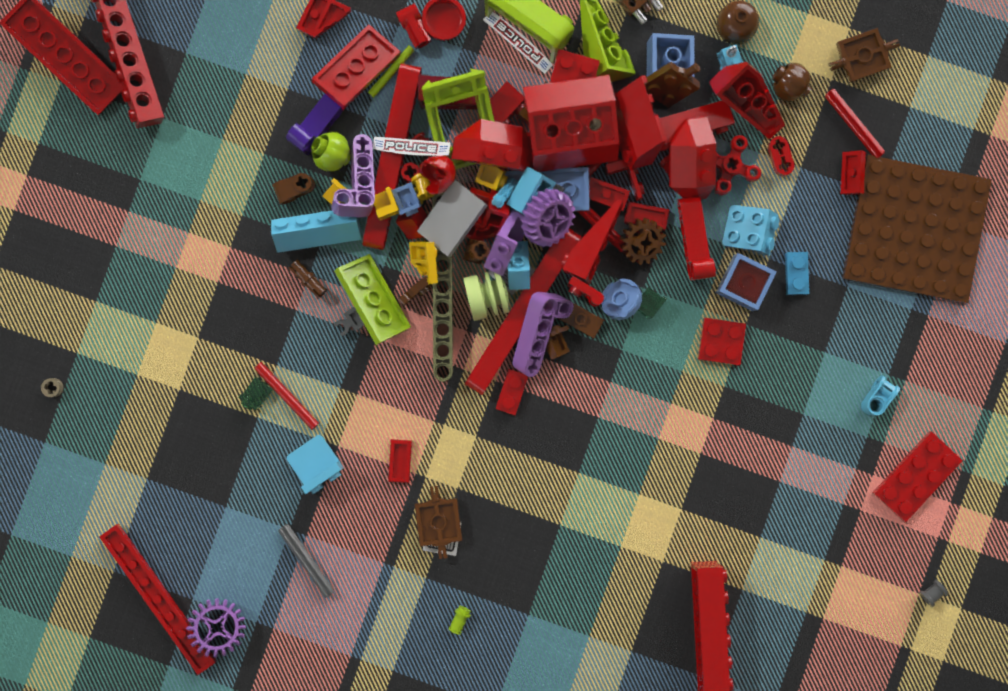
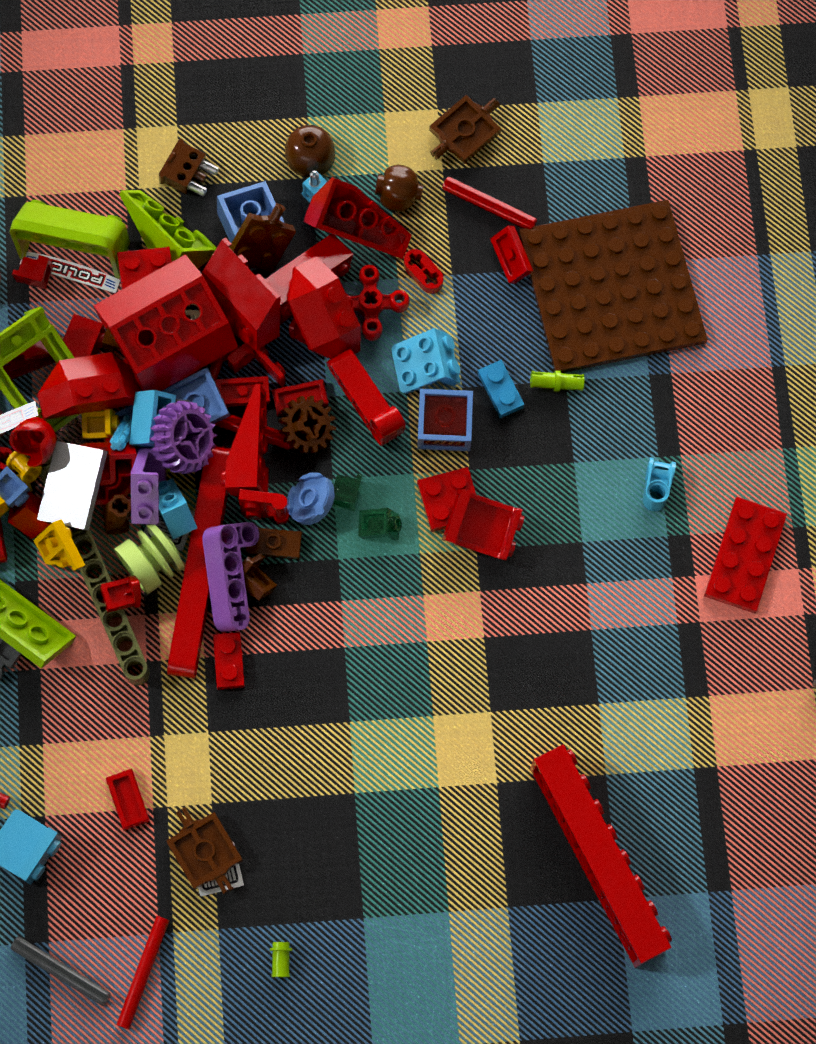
camera: 25 degrees left, 15 degrees down
(361, 587) = (142, 973): none -> red piece
(419, 288) = (67, 586): reddish brown plate -> none
(455, 314) = (121, 594): none -> red tile
(491, 31) = (34, 272): none -> red panel
(662, 339) = (379, 523): none -> clear green bracket
(738, 374) = (483, 525): none -> red panel
(841, 286) = (557, 380): none -> lime pin

